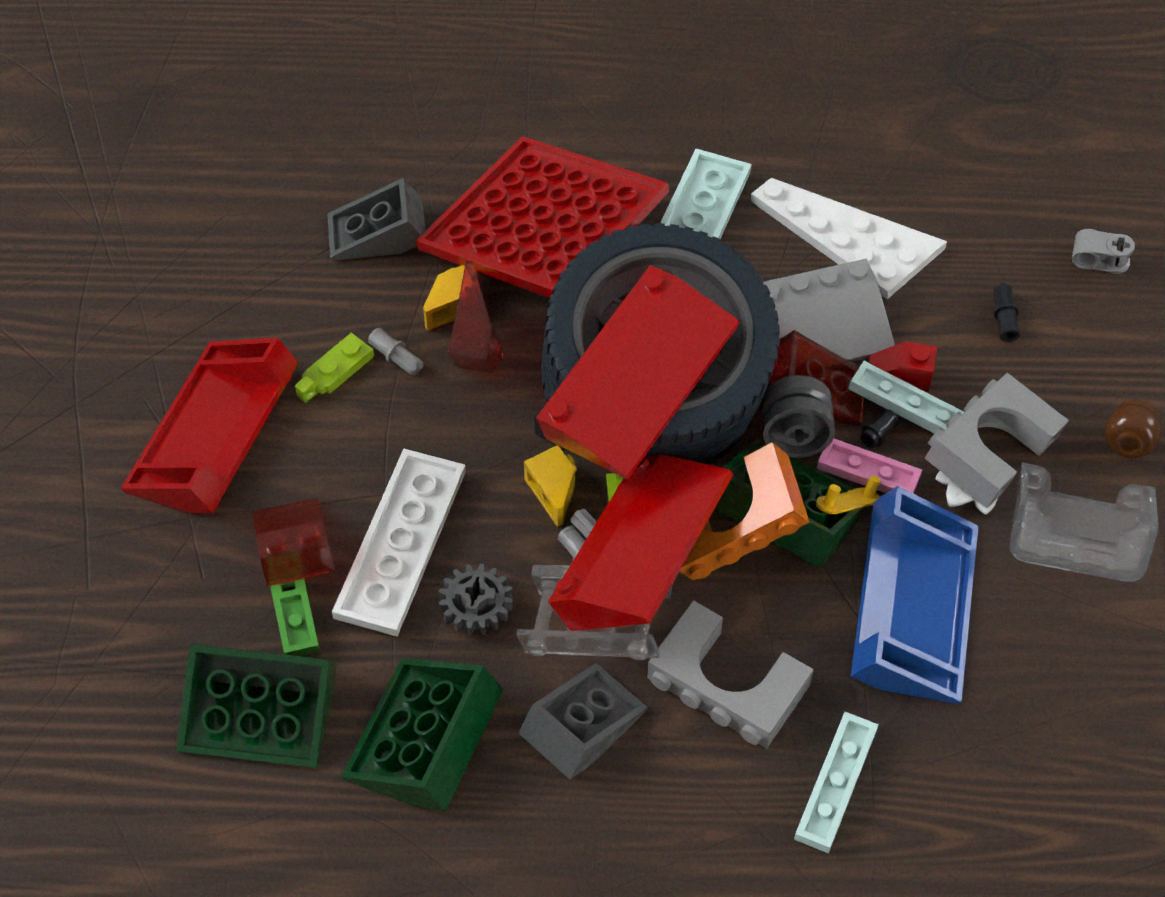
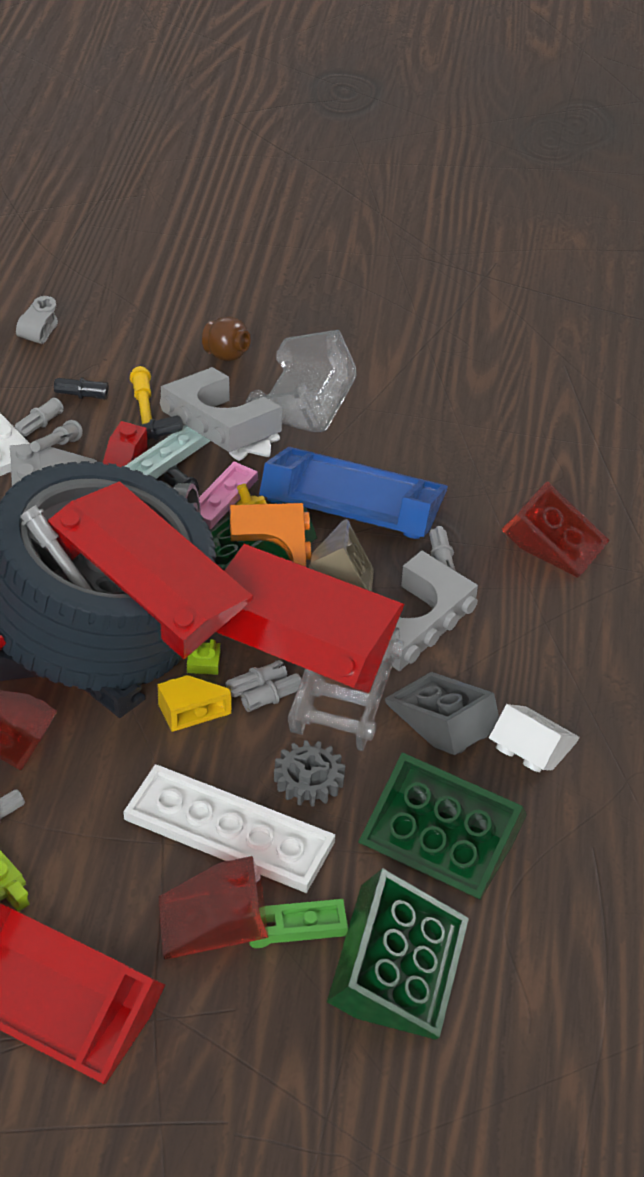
camera: 85 degrees left, 10 degrees down
(561, 815) = (532, 737): none -> white slope
(643, 259) = (47, 538): none -> light grey pin
(757, 588) = (343, 558): none -> dark tan slope
(834, 700) = (440, 547): none -> light grey axle
(836, 782) = (514, 563): light aqua plate -> none
(899, 827) = (555, 531): none -> clear red slope
(909, 304) = (70, 431): none -> light grey pin
(943, 284) = (39, 417): none -> light grey axle
(950, 386) = (163, 427): none -> black axle
(1020, 368) = (140, 378): none -> yellow pin

